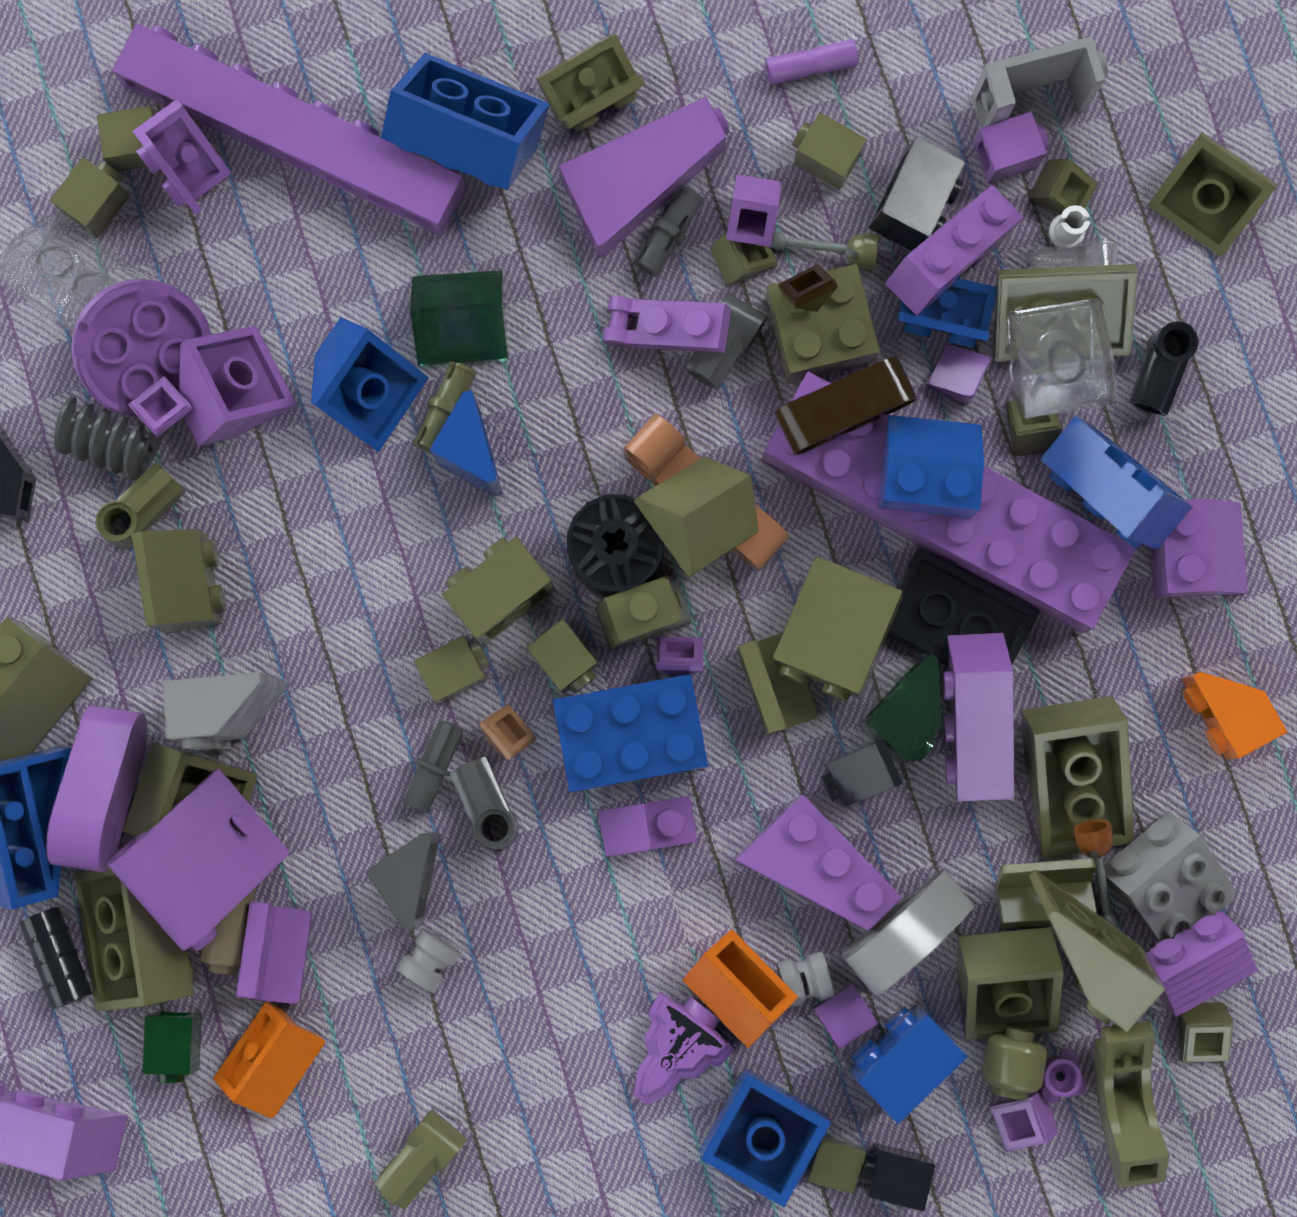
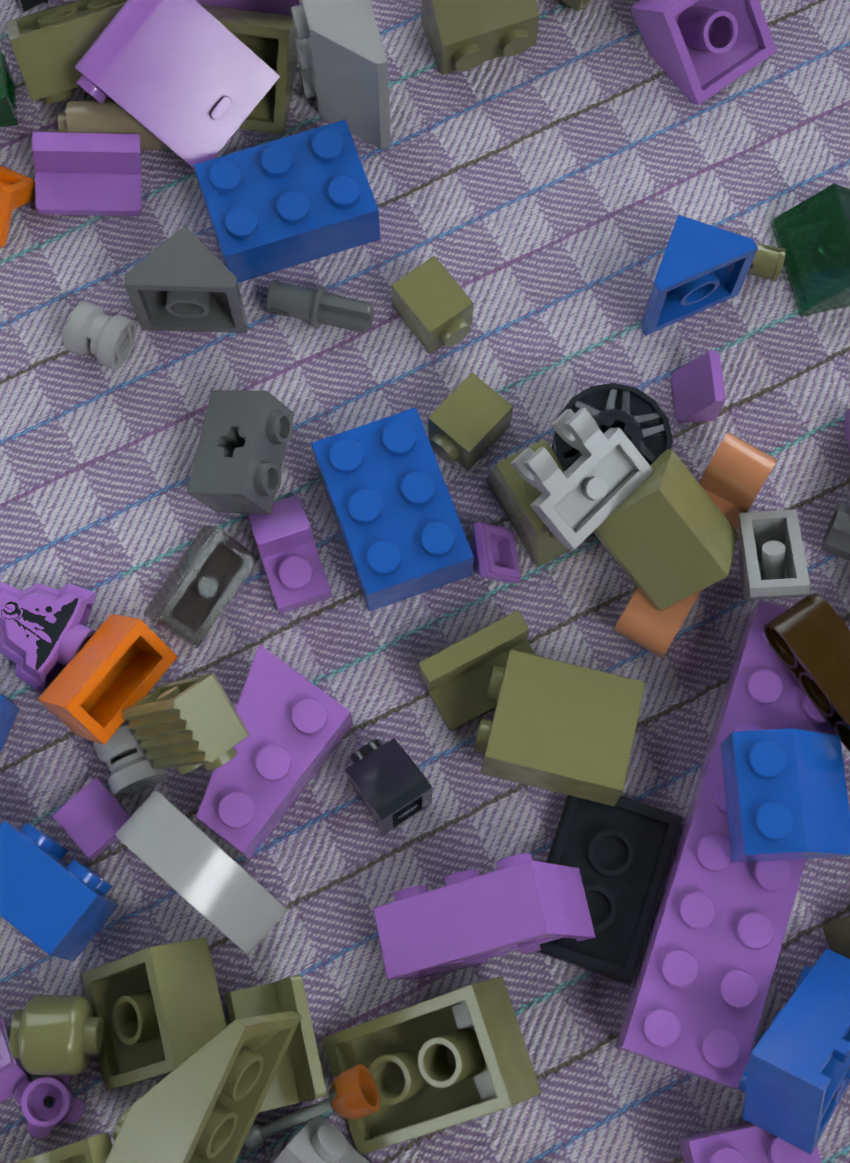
camera: 80 degrees right, 10 degrees down
(332, 779) = (289, 201): none -> blue brick
(363, 383) = (735, 161): blue slope -> none
(483, 800) = (289, 361): dark grey piece -> none
(498, 589) = (531, 330): olive brick -> none
(507, 732) = (372, 378): medium nougat slope -> none
(564, 460) = (699, 389): none -> medium lavender slope
(571, 871) = (241, 452): none -> dark grey brick
(662, 570) = (592, 486): none -> light grey plate
(663, 904) = (201, 585): none -> clear smoke slope
(733, 434) = (772, 556): none -> light grey slope
(798, 927) = (187, 725): none -> olive brick
(908, 713) = (471, 824): clear green slope -> none

